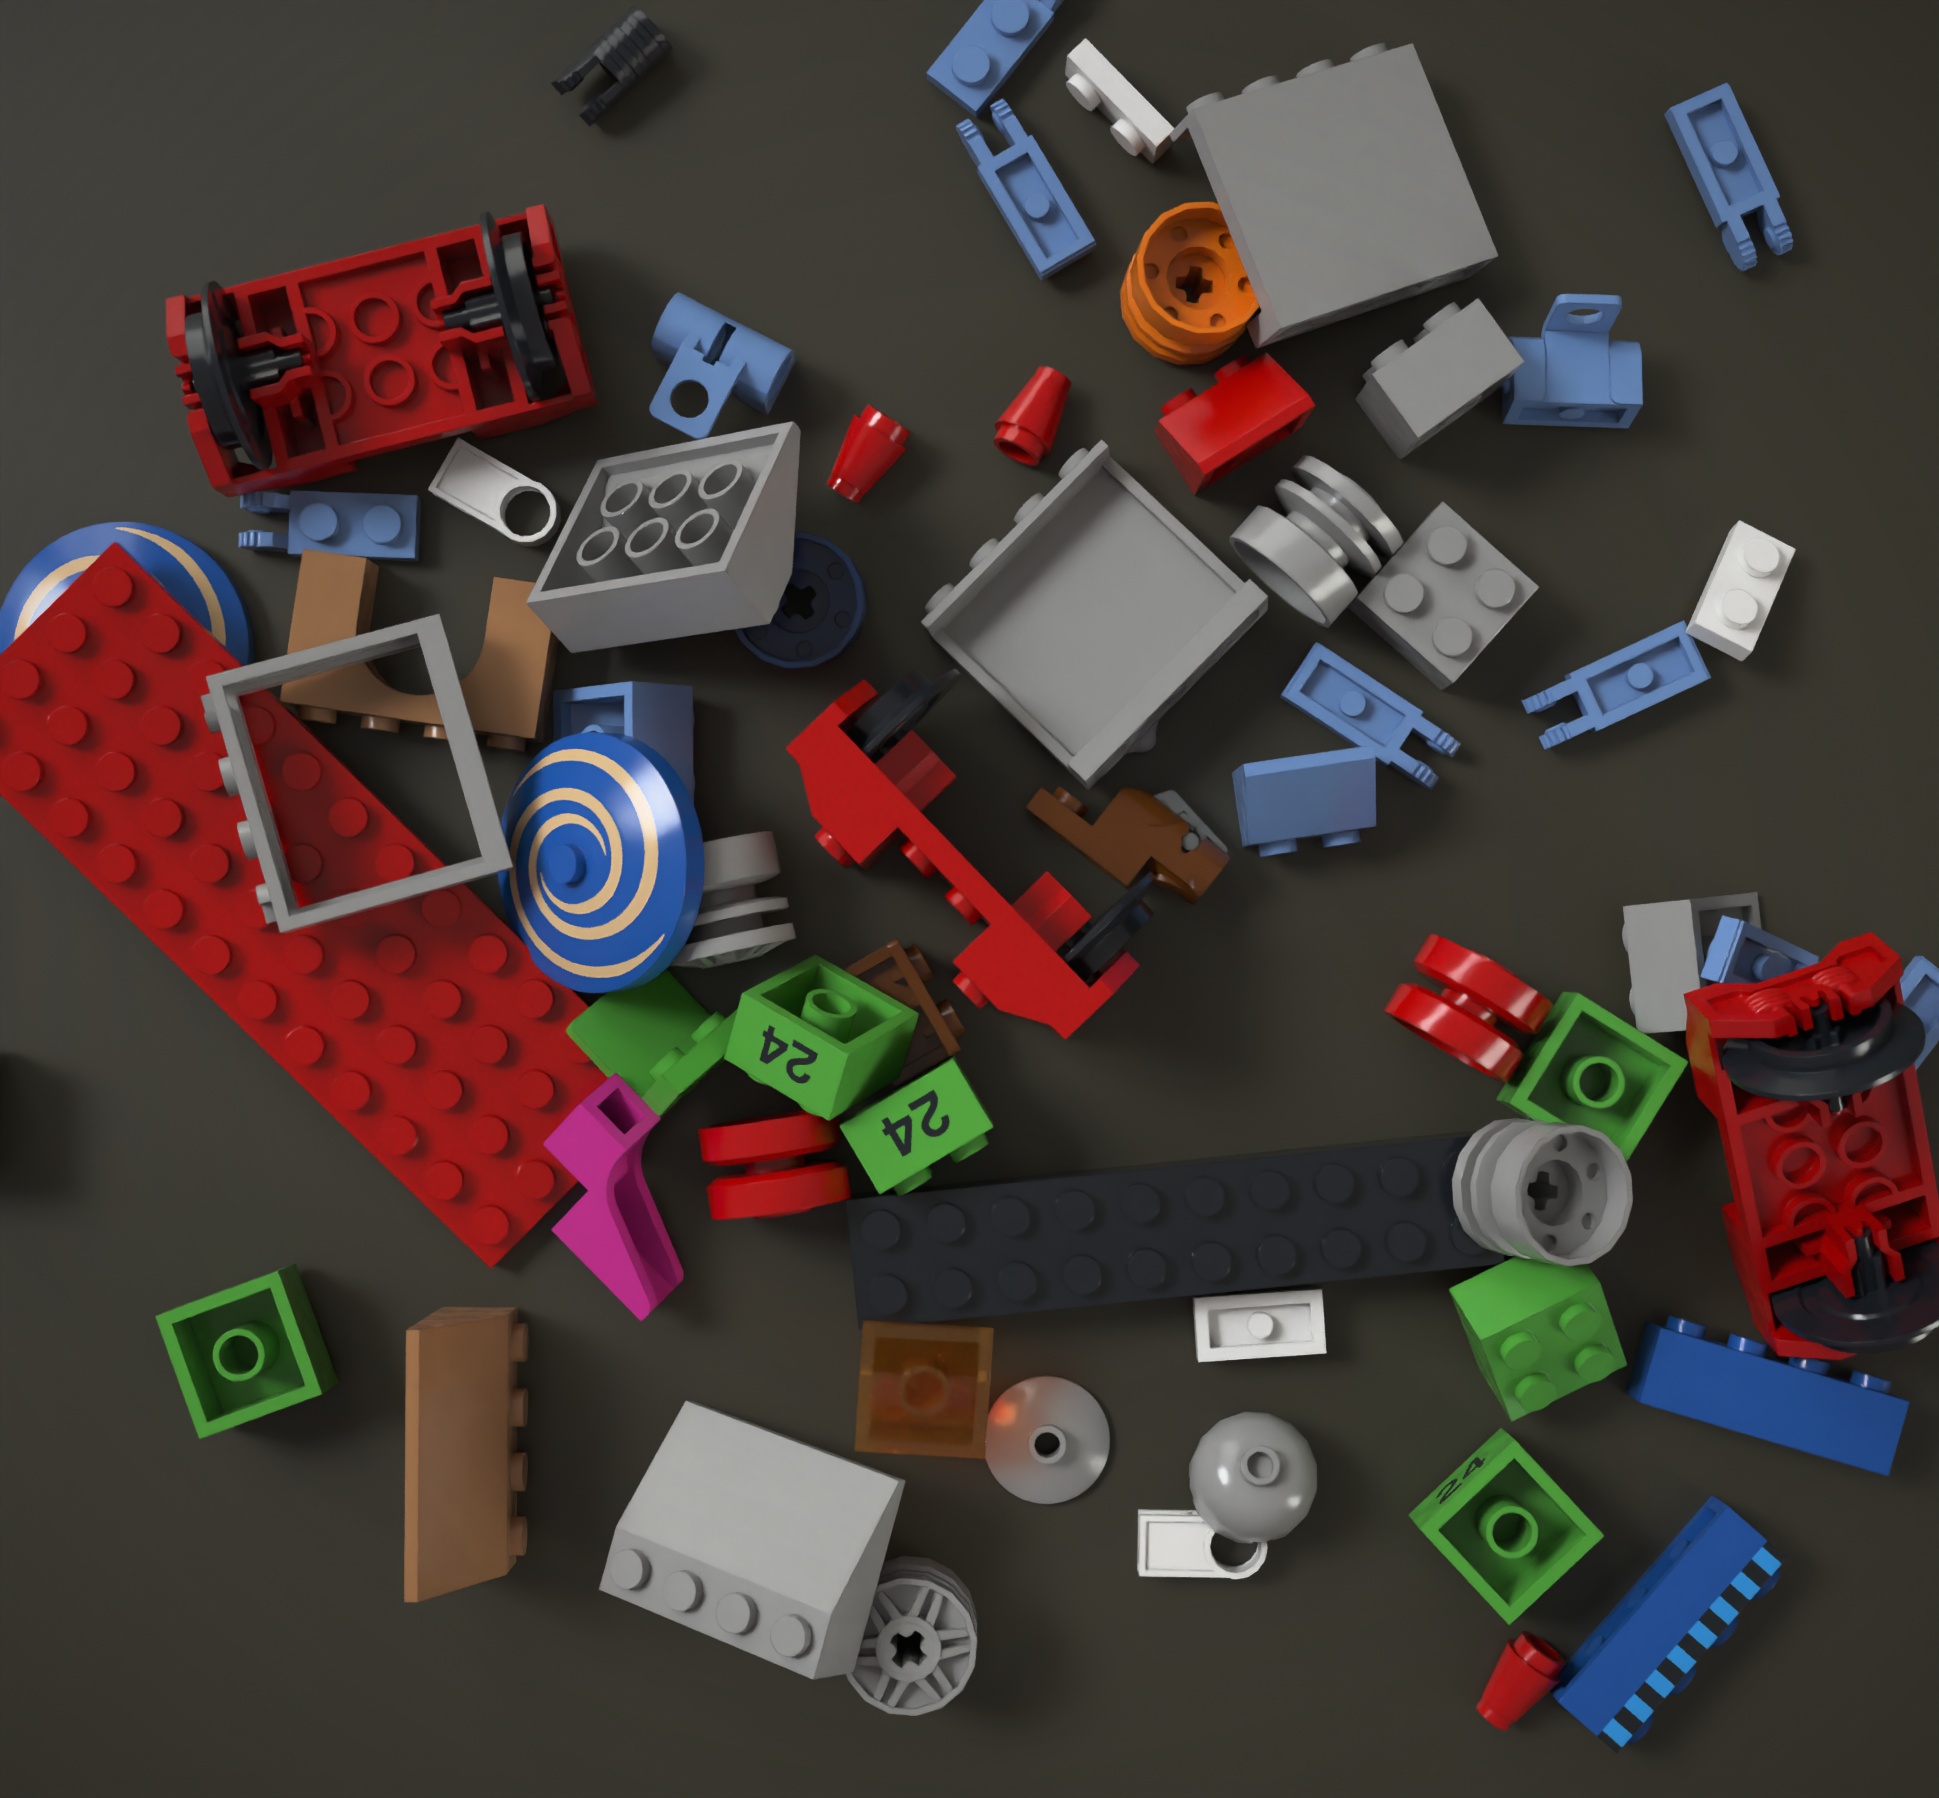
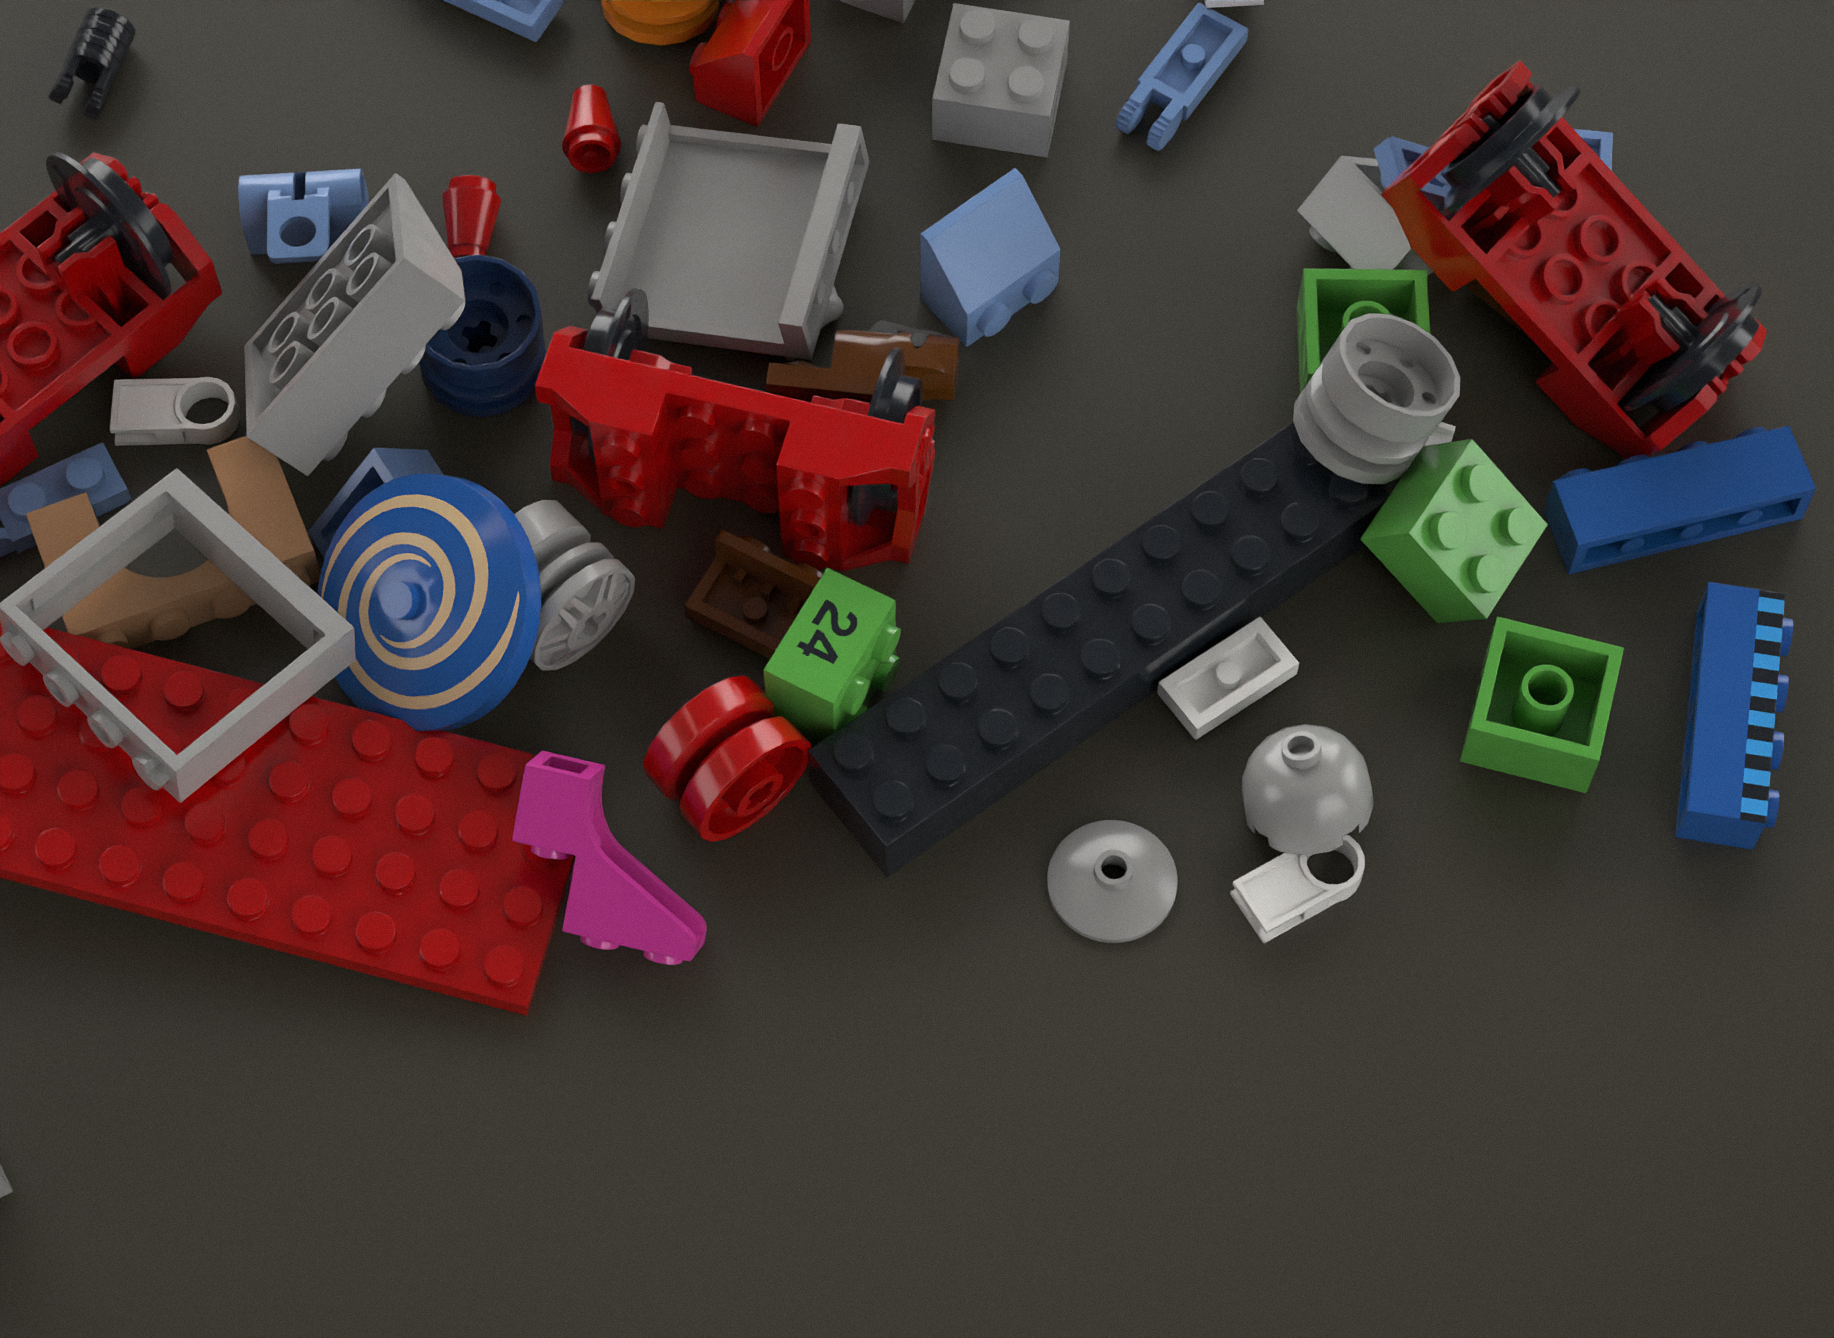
camera: 30 degrees left, 25 degrees down
(247, 1351) = (340, 1187): bright green brick -> none
(463, 1449) = (593, 1145): medium nougat slope -> none
(654, 1039) = (567, 725): bright green bracket -> none
(756, 1541) = (909, 1070): light grey slope -> none
(821, 1036) = (703, 632): bright green brick -> none
(924, 1389) = (973, 866): clear orange slope -> none
(938, 1605) = (1090, 1118): light grey wheel -> none
(1326, 528) = (875, 74): light grey wheel -> none
(1364, 712) = (953, 183): medium blue hinge -> none
(1471, 1002) = (1226, 334): red wheel -> none
(1520, 1679) = (1647, 830): red cone -> none

